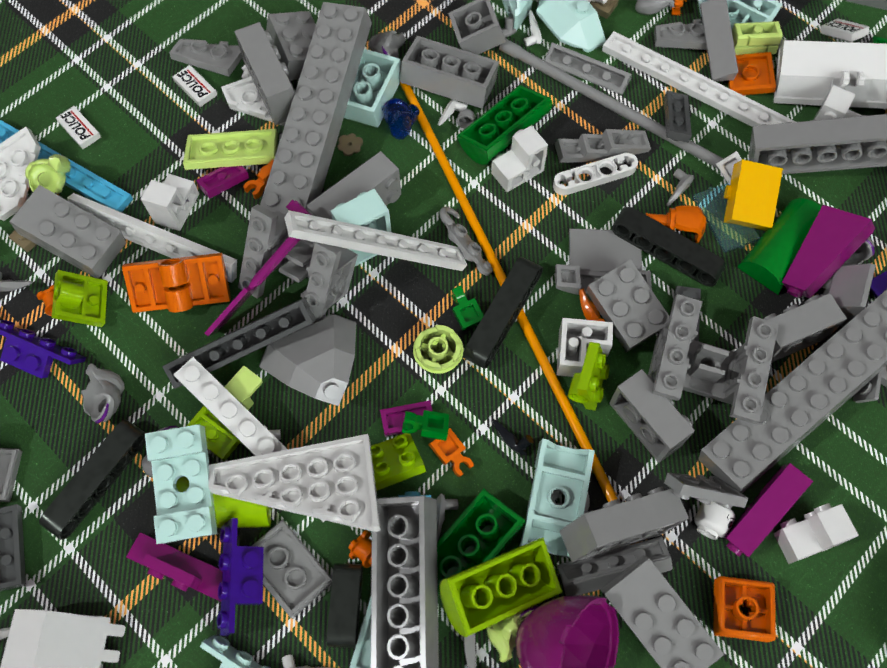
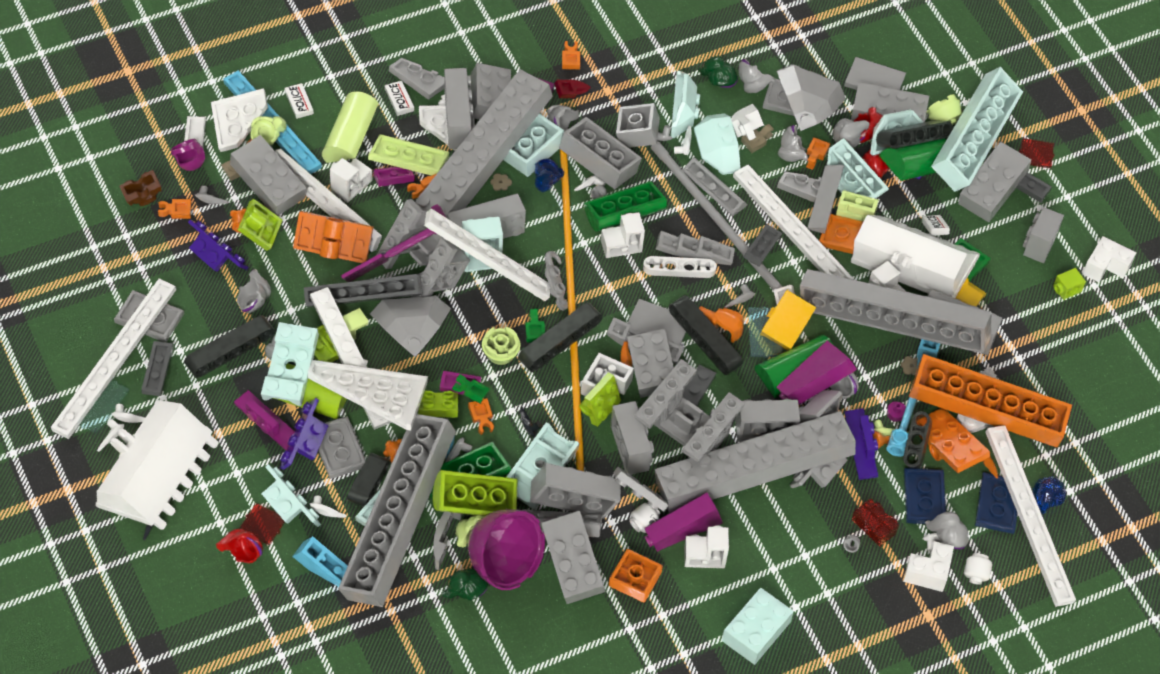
camera: 15 degrees right, 10 degrees down
(148, 139) = (350, 127): none -> yellowish green brick
(383, 11) = (570, 88): none -> dark red plate

